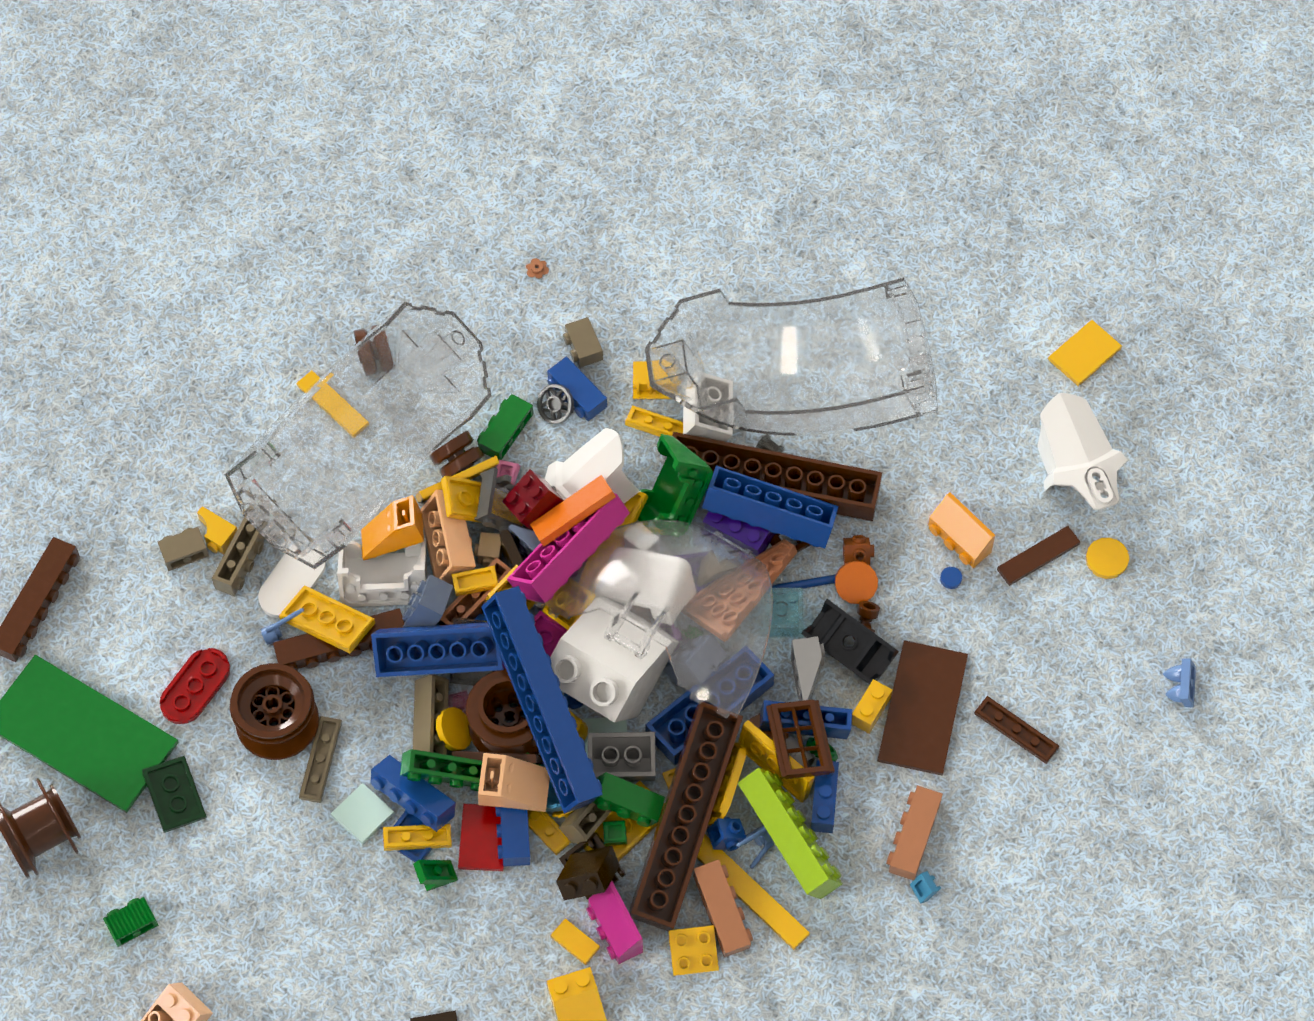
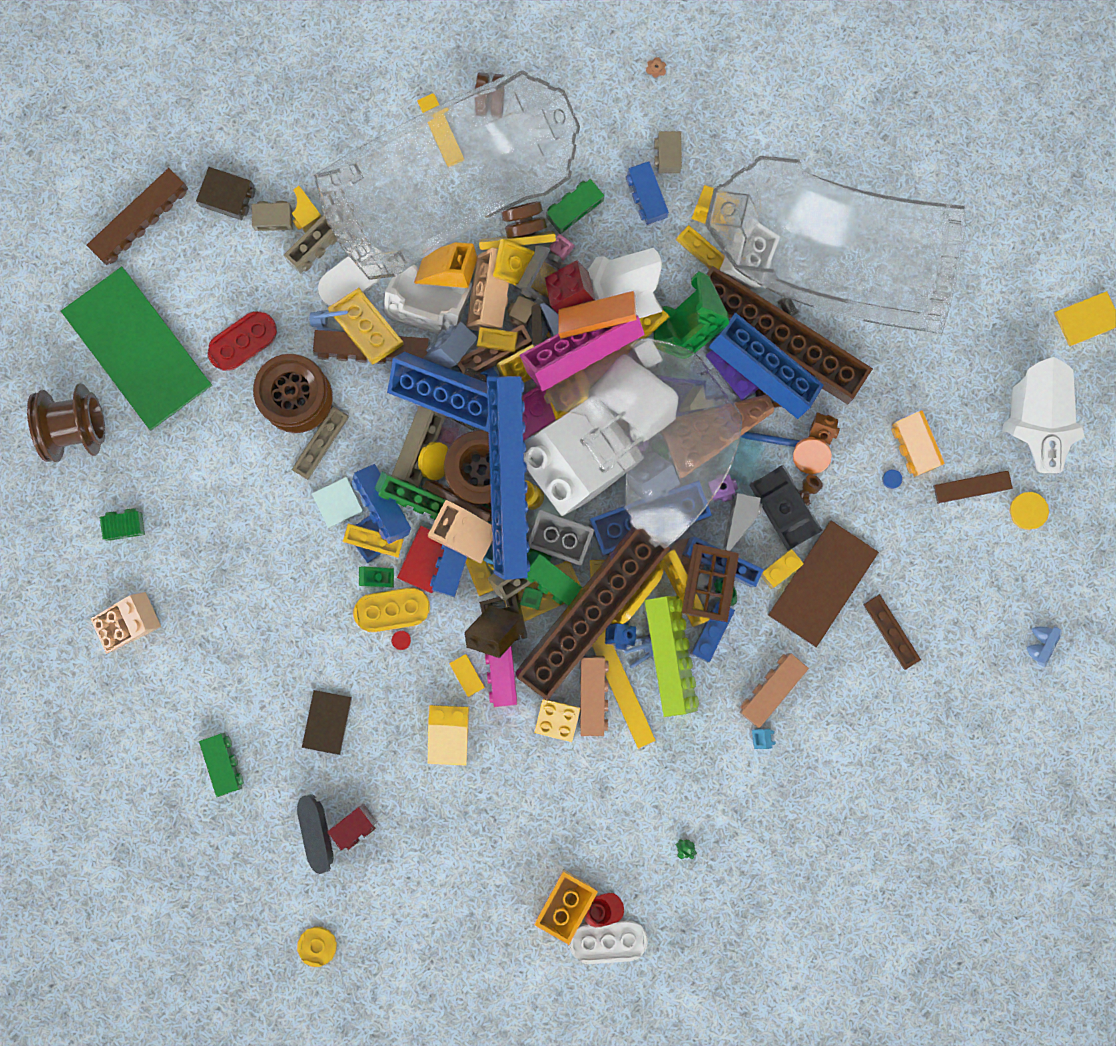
camera: 15 degrees right, 20 degrees up
(124, 543) = (225, 193): none -> dark brown brick
(174, 794) = (192, 429): dark green tile -> none
(465, 903) = (391, 610): none -> yellow tile
(488, 931) = (401, 640): none -> red tile
(555, 403) = (624, 200): dark grey wheel -> none
(777, 648) = (729, 492): none -> medium lavender brick

